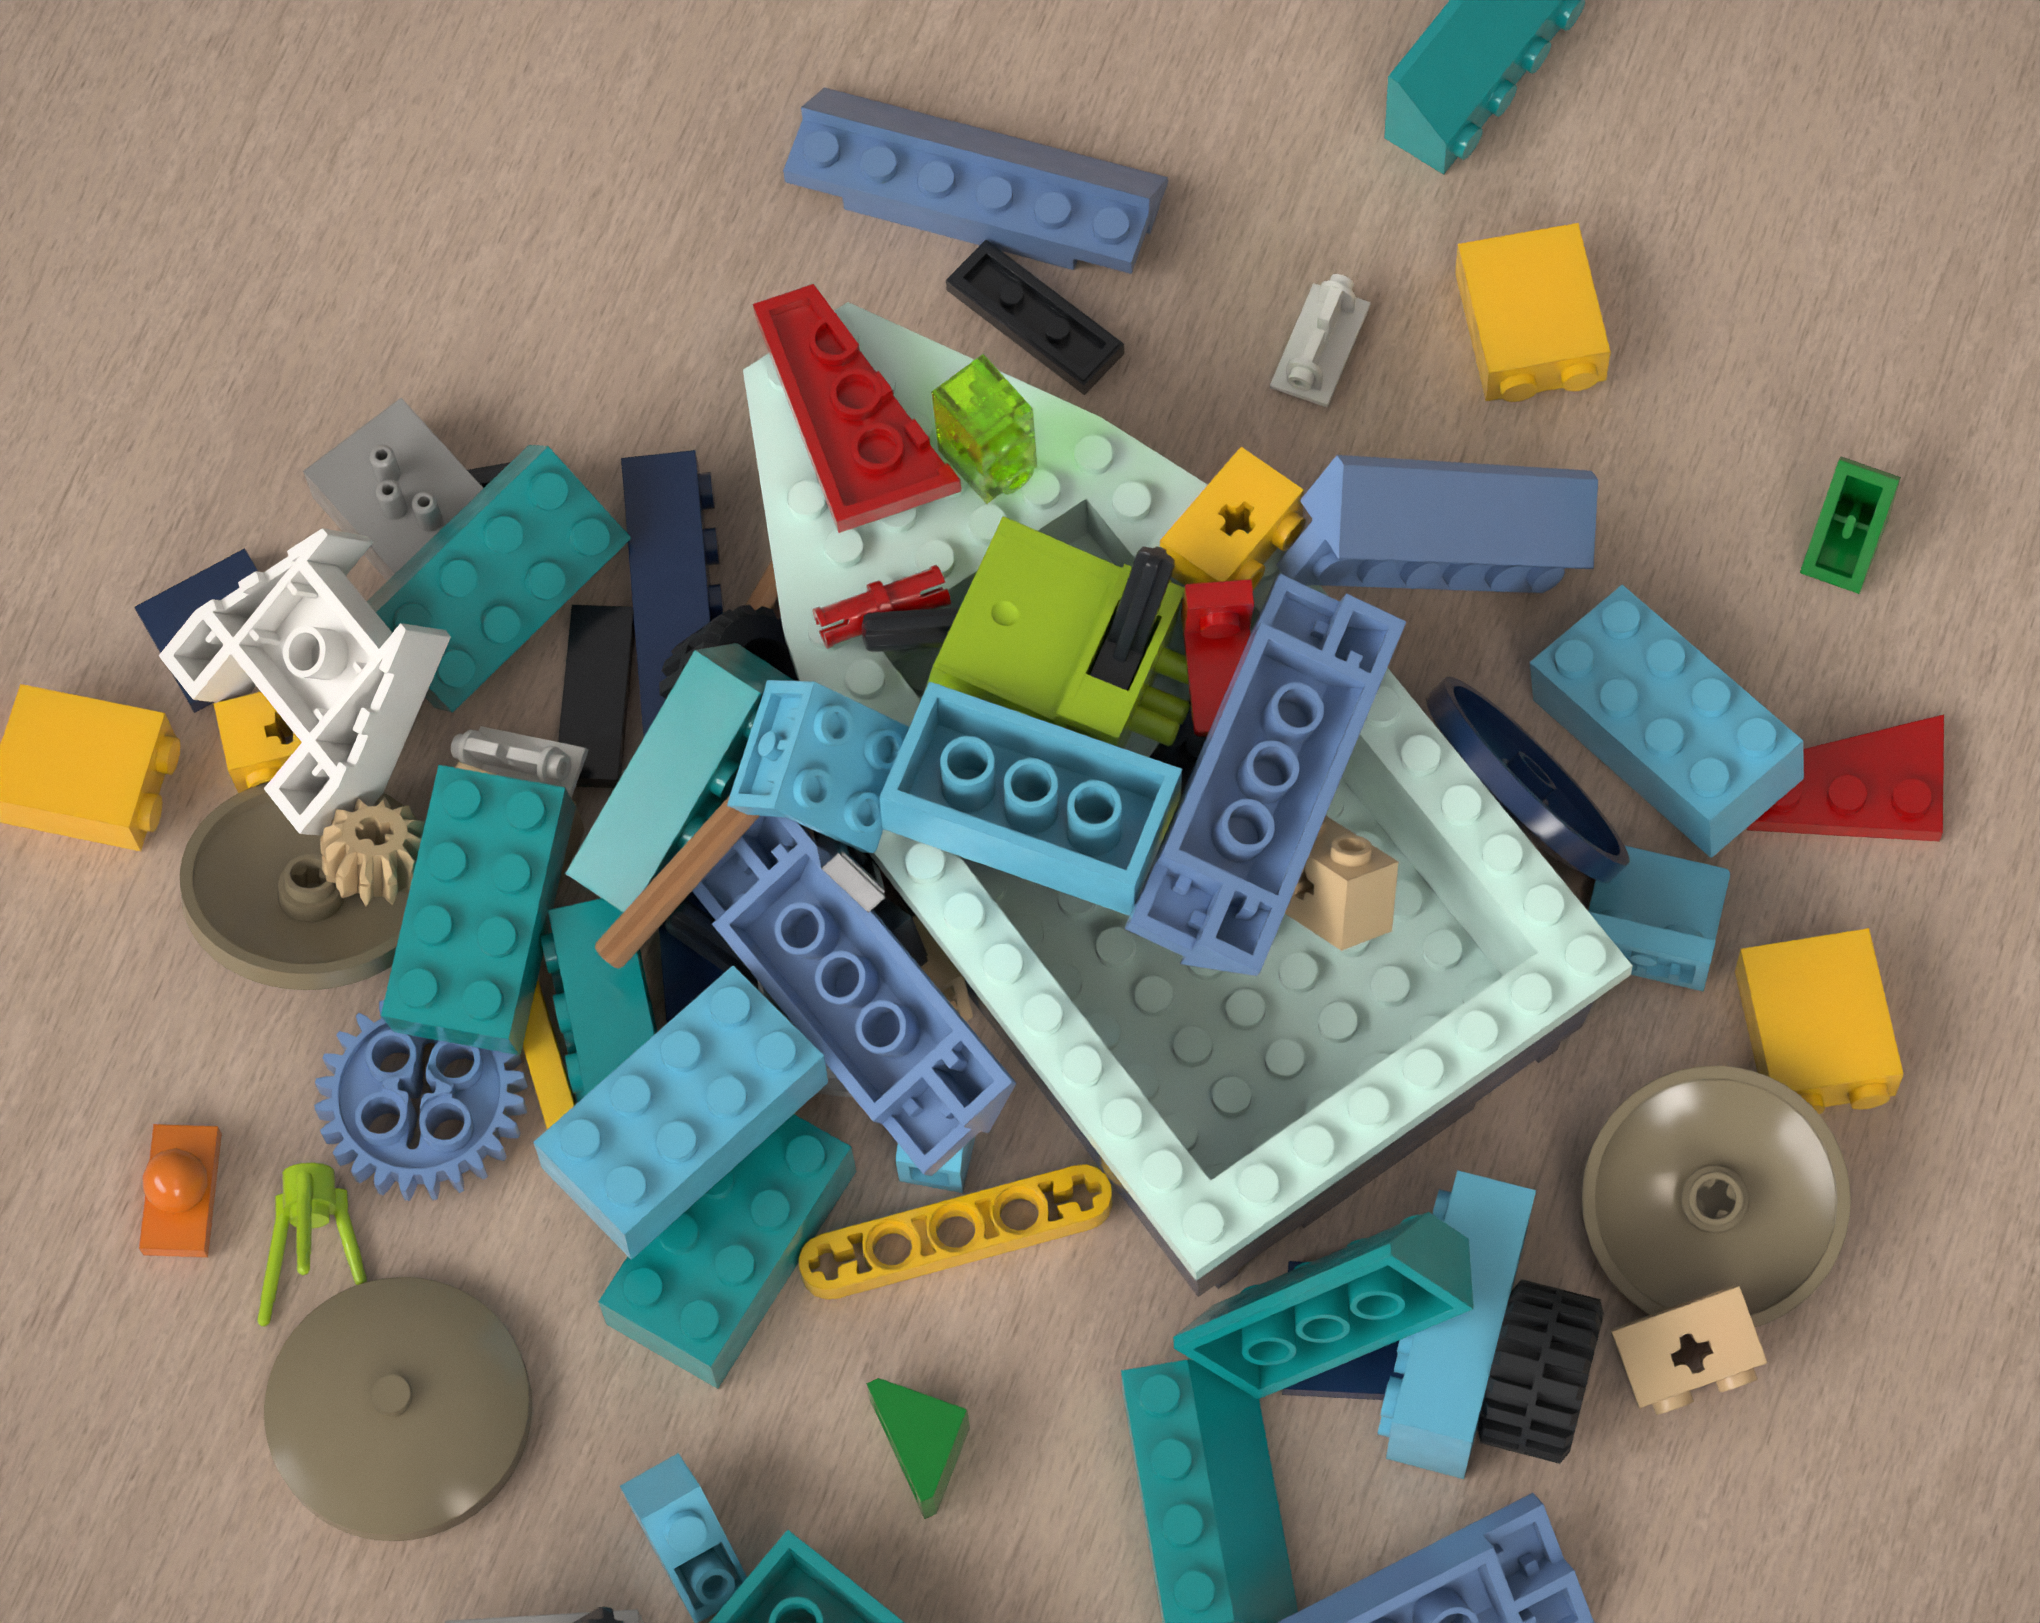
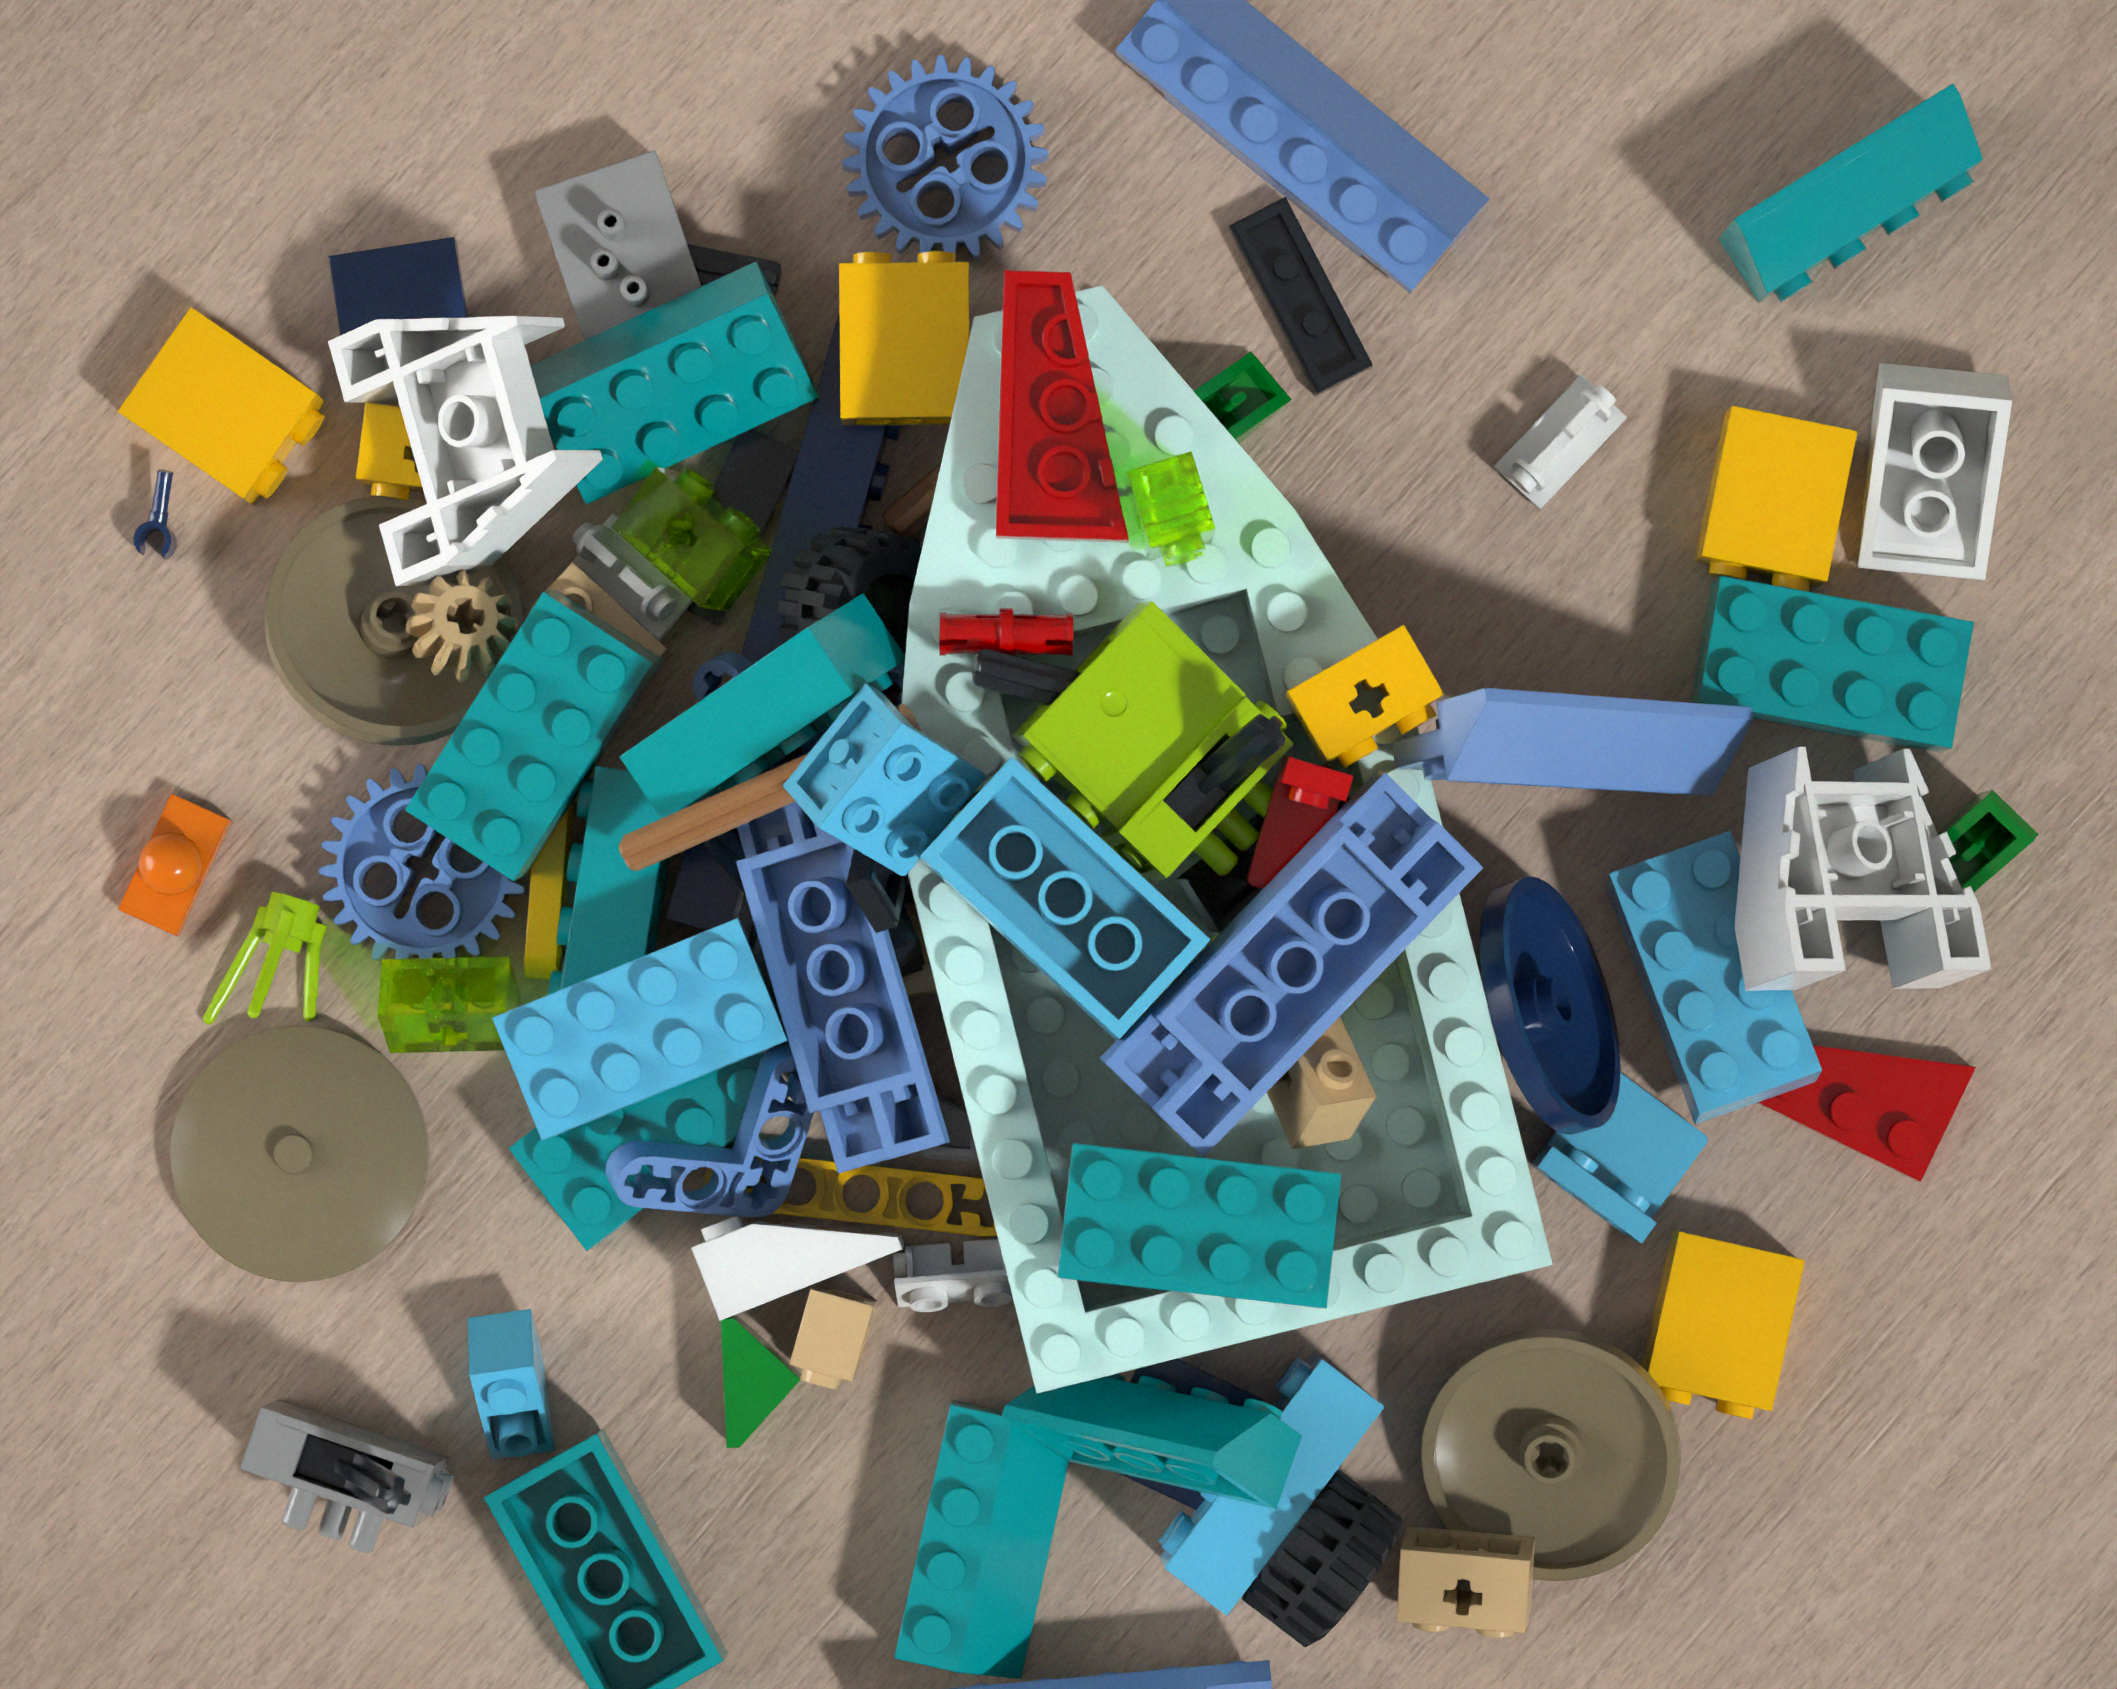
camera: 15 degrees right, 20 degrees up
(55, 893) = (158, 517): none -> dark blue hand
(490, 1202) = (445, 1003): none -> clear neon green brick
(531, 702) = (693, 537): none -> clear neon green brick
(666, 319) = (913, 112): none -> medium blue gear
(689, 457) = (902, 338): none -> yellow brick
(826, 1232) = (731, 1167): none -> medium blue beam
(907, 1299) = (772, 1259): none -> white slope
(981, 1354) = (832, 1336): none -> tan brick
(1020, 1148) = (959, 1131): none -> light grey tile
(1107, 1259) = (929, 1281): none -> white hinge
(1283, 1041) = (1199, 1225): none -> teal brick
(1655, 420) = (1833, 663): none -> teal brick
(1662, 241) = (1933, 470): none -> white slope
(1734, 555) = (1849, 855): none -> white wedge

